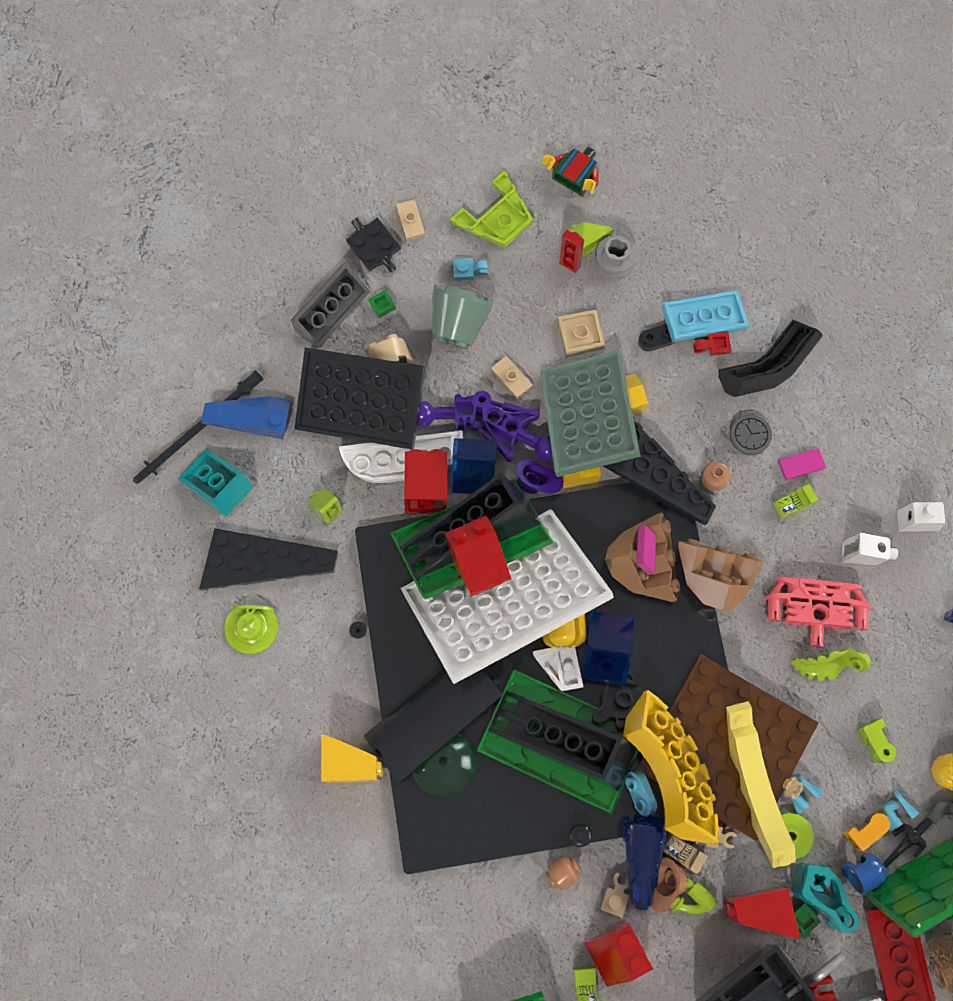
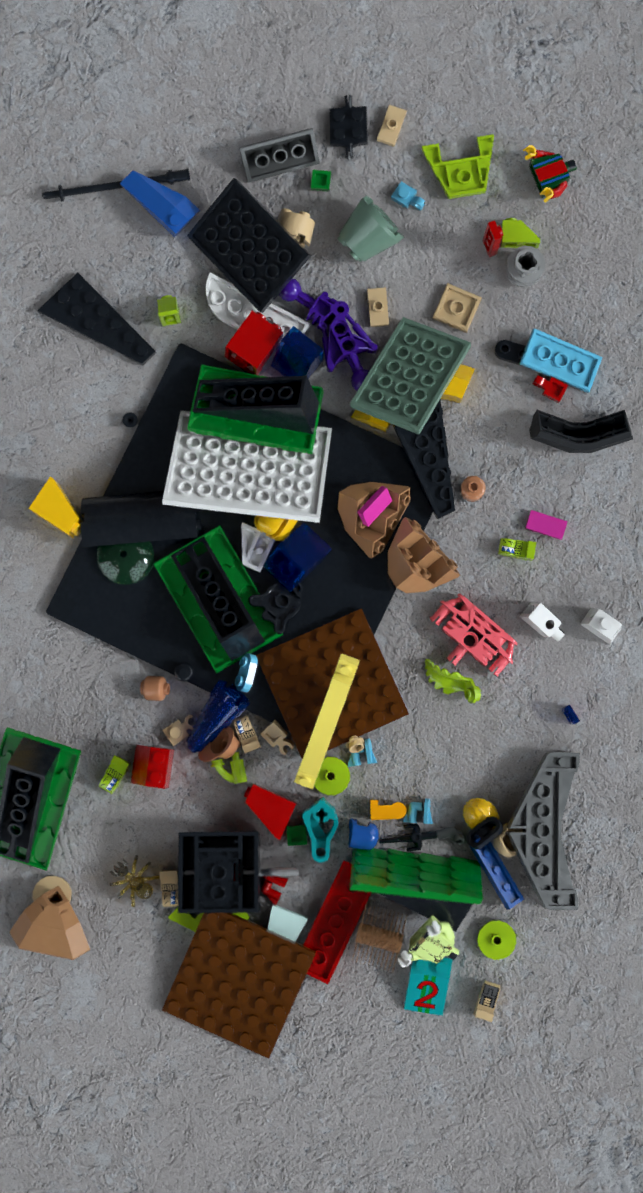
camera: 35 degrees right, 10 degrees up
(216, 482) = (101, 237): teal slope -> none
(251, 628) = (55, 365): lime hat -> none
(478, 556) = (244, 425): red slope -> none
(537, 478) = (337, 397): dark purple piece -> none
(676, 768) = (281, 672): yellow brick -> none
(750, 435) = (525, 476): dark grey tile -> none
(877, 742) = (440, 758): lime leg -> none

